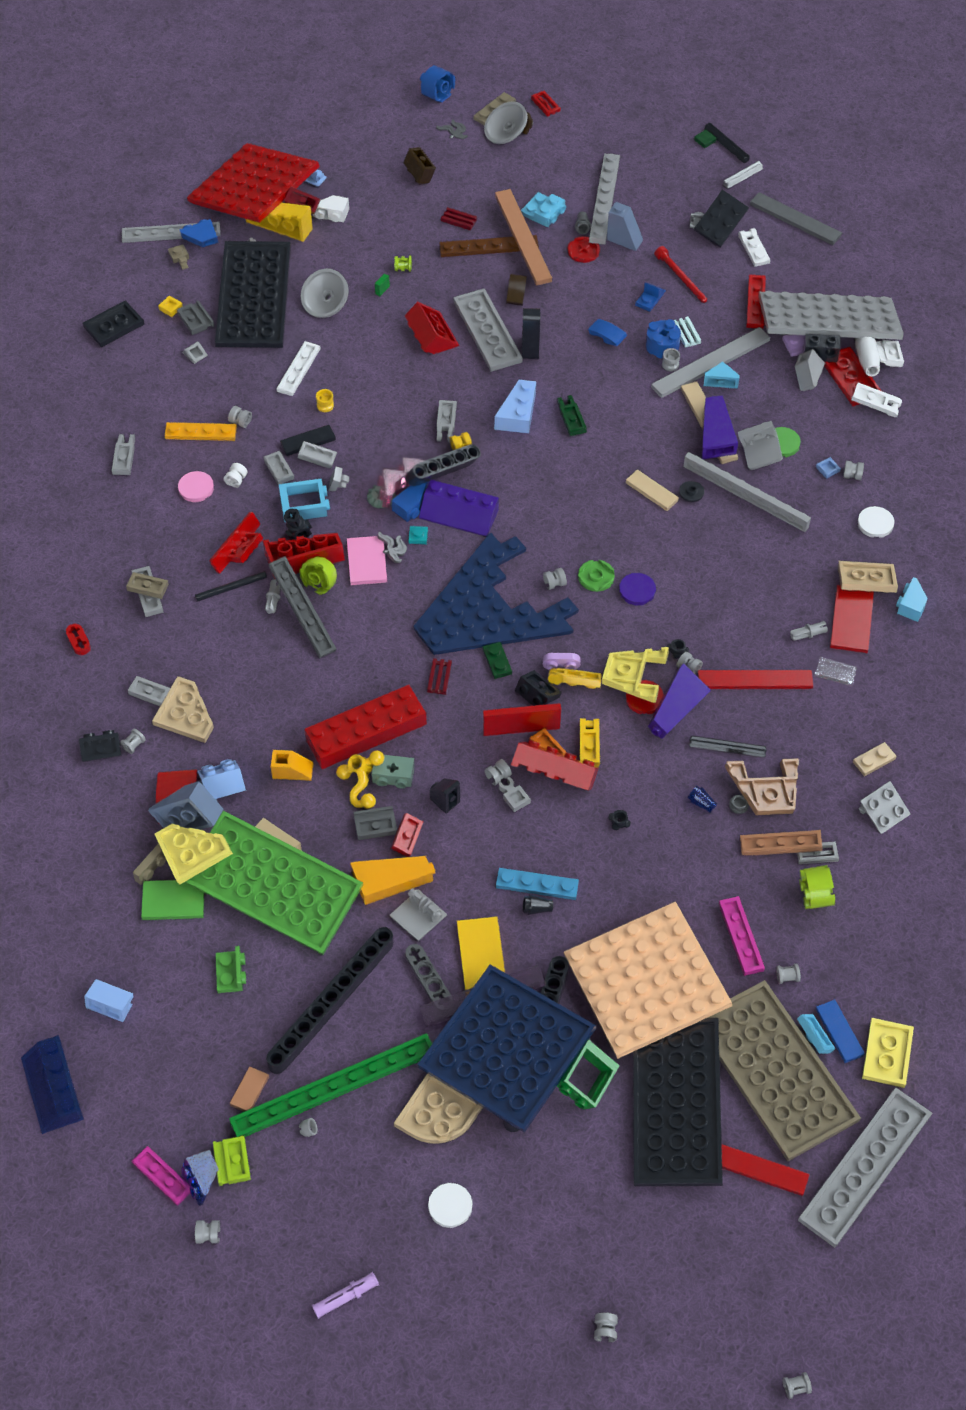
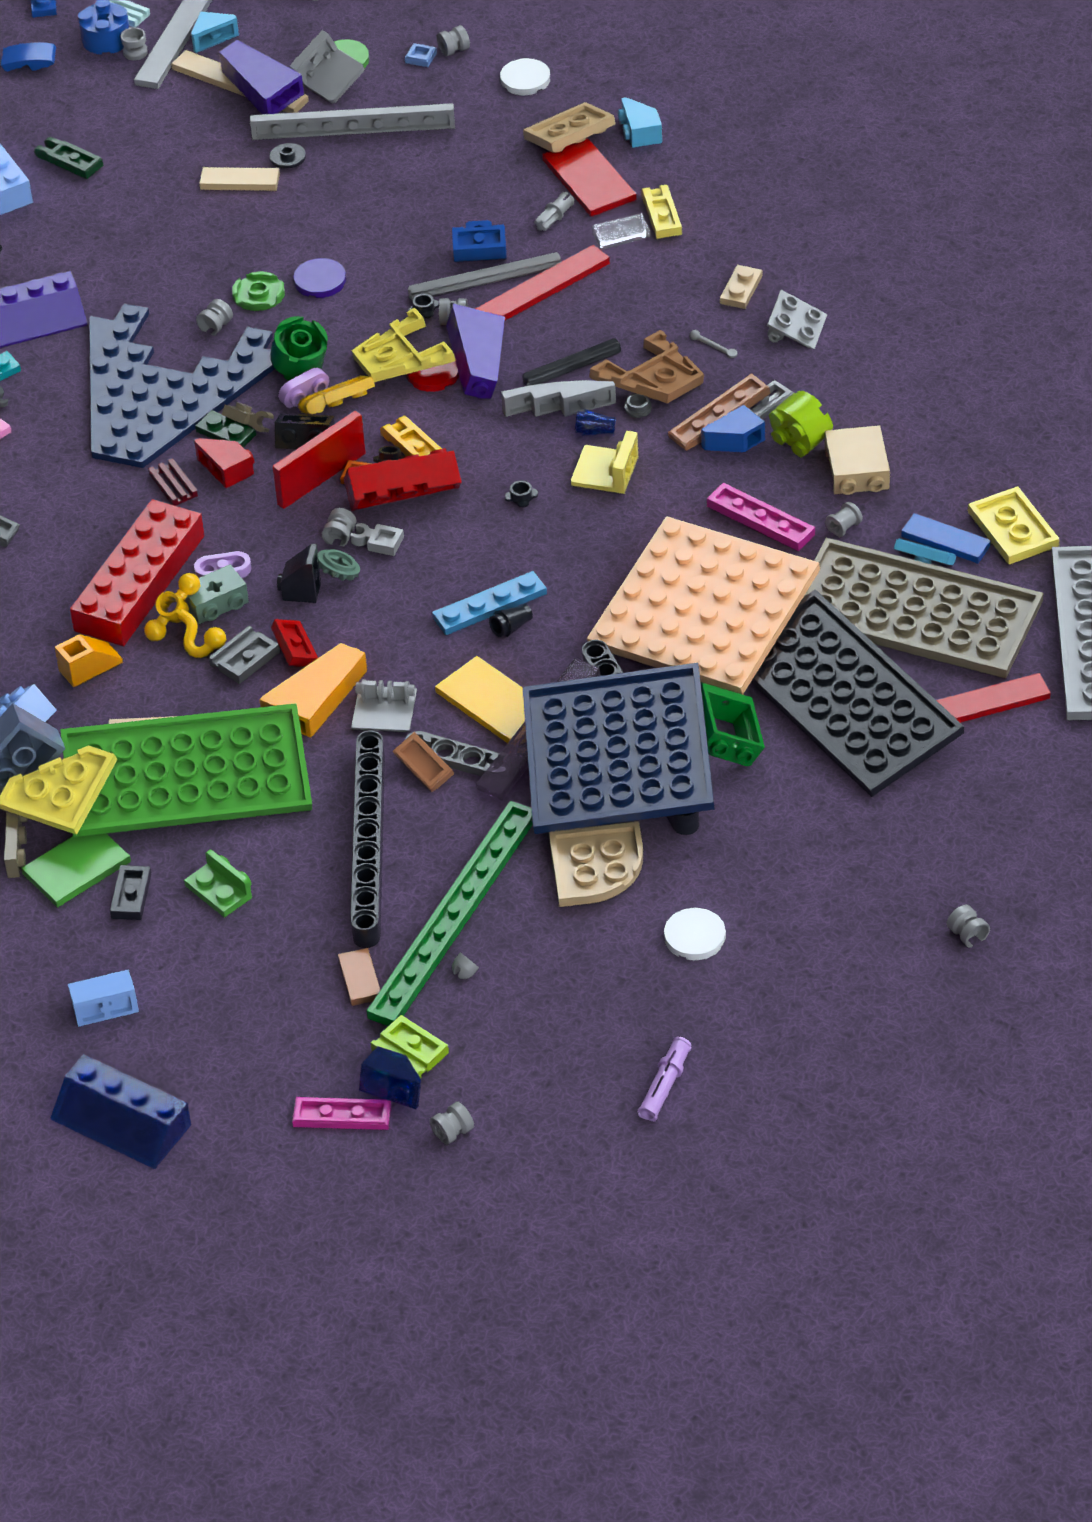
camera: 35 degrees left, 10 degrees down
(182, 940) = (130, 892): none -> plate
(404, 969) = (423, 762): none -> nougat tile
(416, 752) = (239, 560): none -> lavender plate
(474, 790) = (338, 564): none -> sand green gear
(477, 683) = (225, 460): none -> red slope
(513, 658) = (243, 414): none -> dark tan plate
(568, 741) = (388, 453): none -> black plate
(586, 636) = (298, 347): none -> green brick
(683, 835) = (606, 467): none -> light yellow bracket
(703, 771) = (556, 396): none -> light grey slope
(730, 650) = (485, 276): none -> light grey axle
(743, 626) = (479, 241): none -> blue piece
(777, 863) = (734, 432): none -> blue slope
(828, 803) = (695, 335): none -> light grey hinge
(832, 936) = (857, 460): none -> tan panel
(872, 673) = (661, 211): none -> light yellow plate

